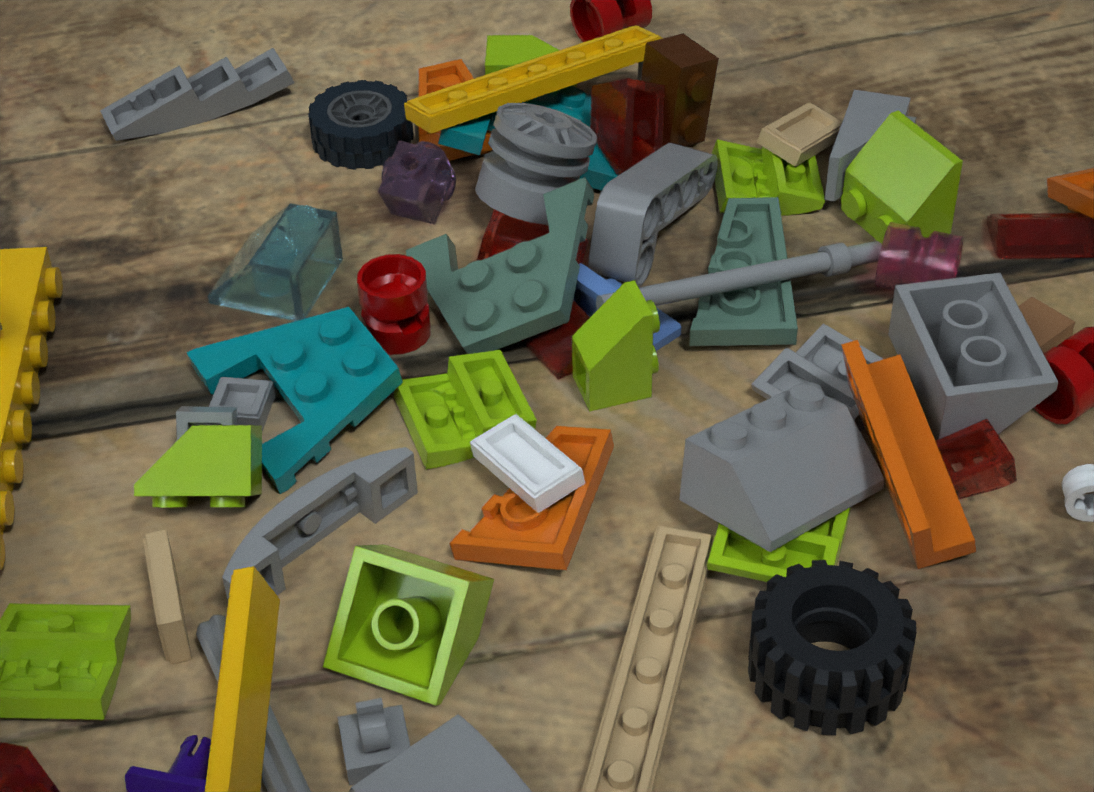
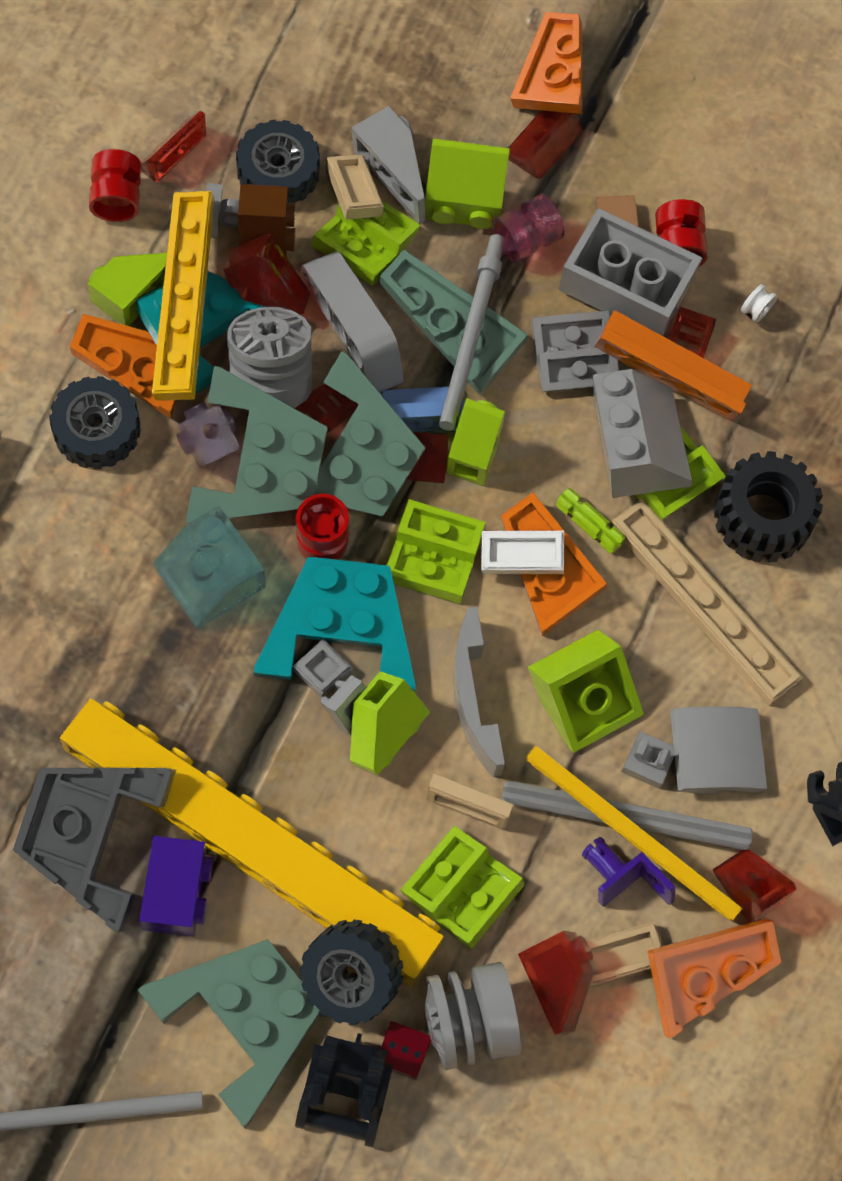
camera: 60 degrees left, 25 degrees up
(445, 221) = (277, 457): none -> sand green wing
(638, 511) = (590, 520): none -> lime axle
(703, 23) = (175, 147): none -> clear red slope
(762, 84) = (275, 144): none -> black wheel

